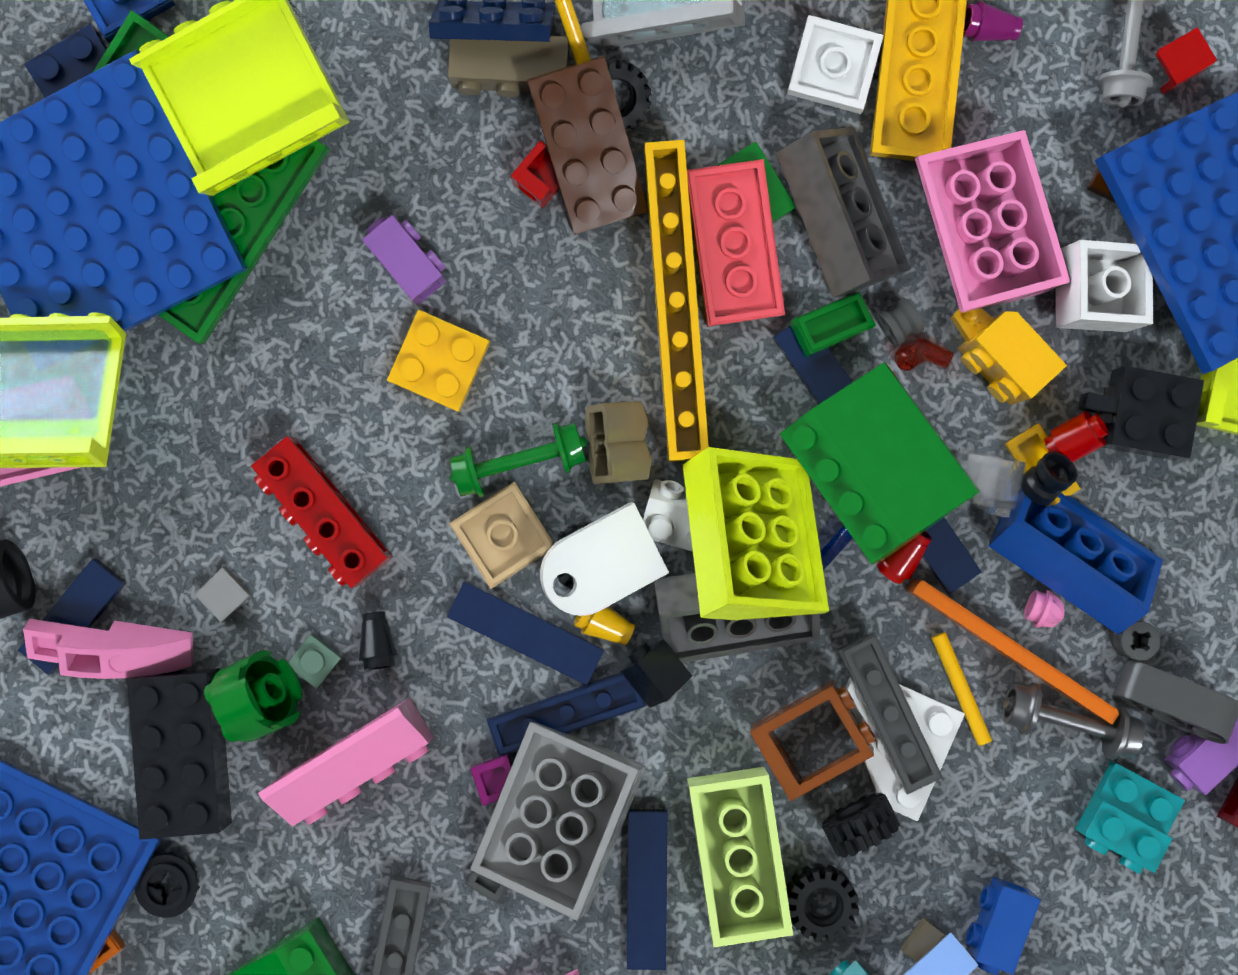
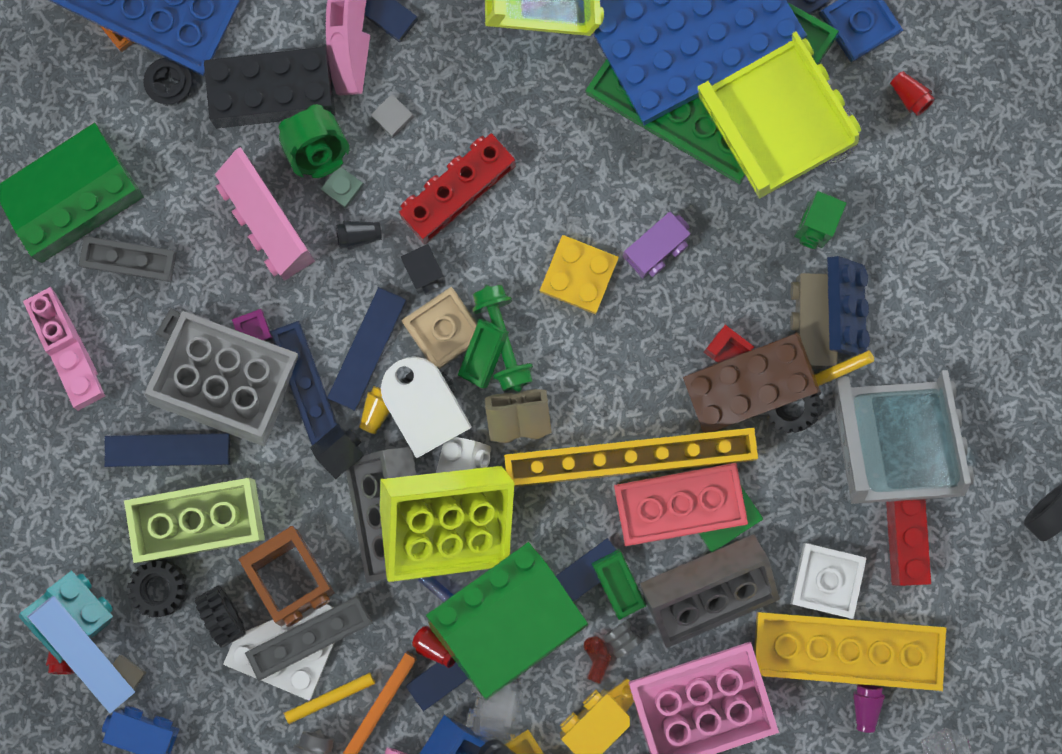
camera: 85 degrees right, 5 degrees down
(380, 48) = (819, 220): none -> green brick
(426, 558) = (423, 270): none -> black brick
(537, 485) = (483, 353): none -> green tile

